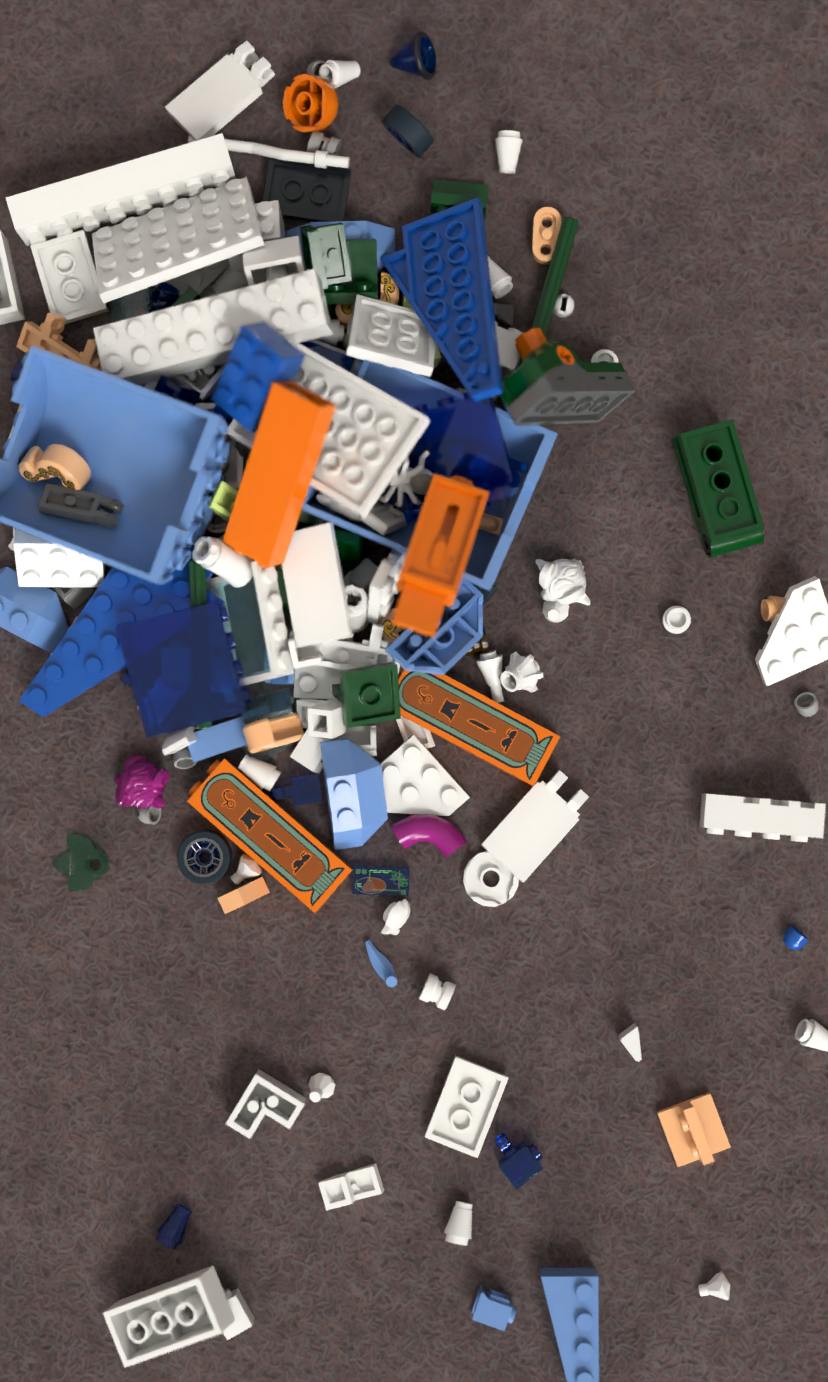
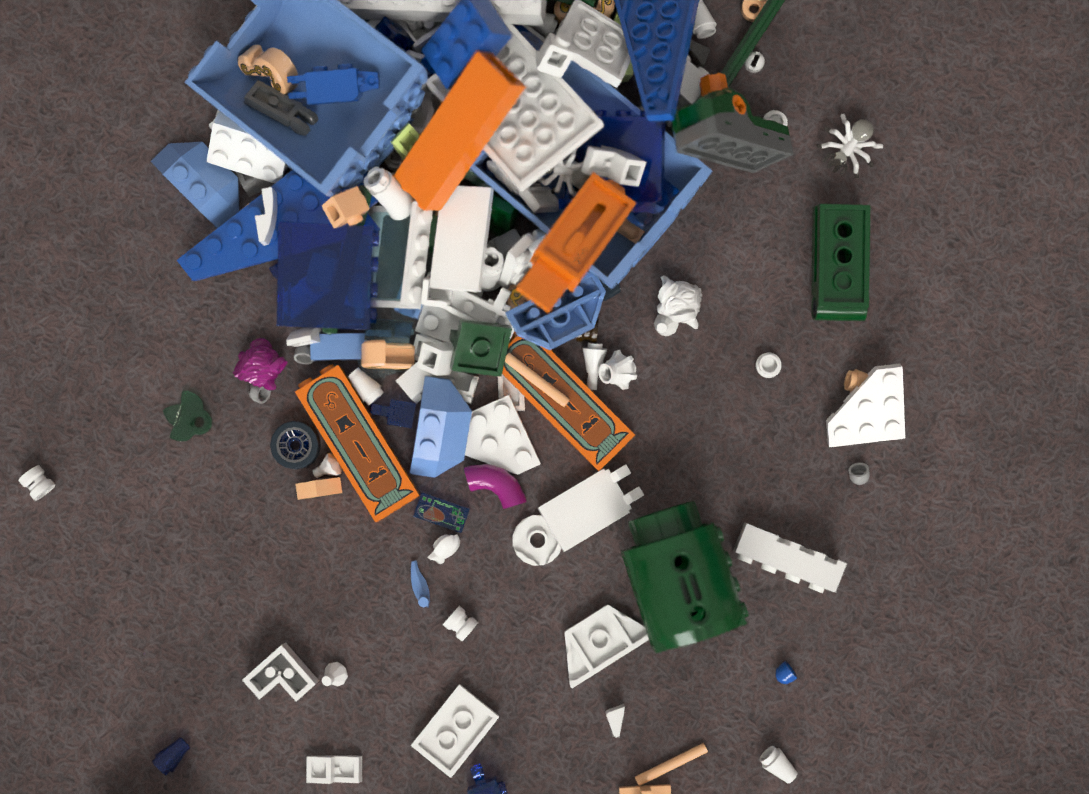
camera: 20 degrees right, 0 degrees up
(102, 632) = (267, 222): none -> white slope
(131, 465) = (334, 86): none -> blue hinge
(183, 590) = (346, 208): none -> light nougat brick
(355, 361) = (555, 54): none -> white brick
(439, 710) = (536, 379): none -> light nougat bar
(452, 458) = (614, 164): none -> white brick
(590, 965) = (600, 642): none -> white wing
(670, 892) = (697, 584): none -> dark green piece
(691, 362) = (850, 145): none -> animal
(698, 1076) = (670, 764): none -> light nougat bar

